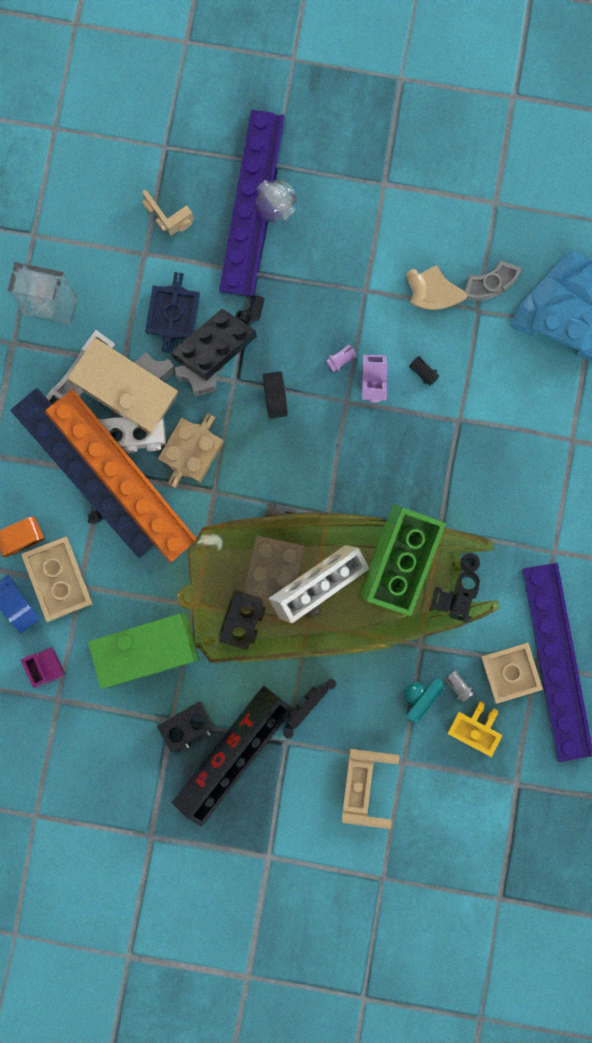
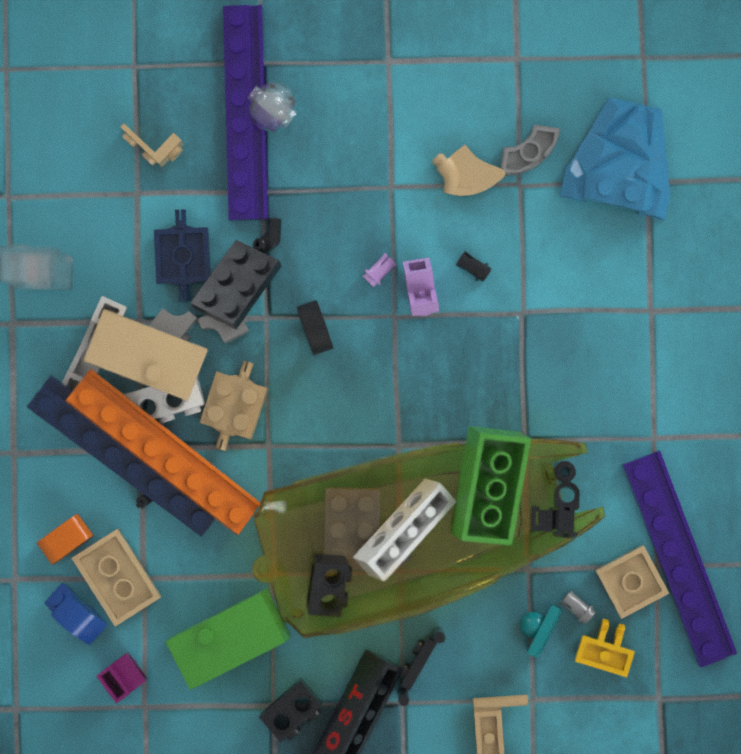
camera: 15 degrees left, 5 degrees up
(273, 509) = (344, 456): dark grey pin -> none

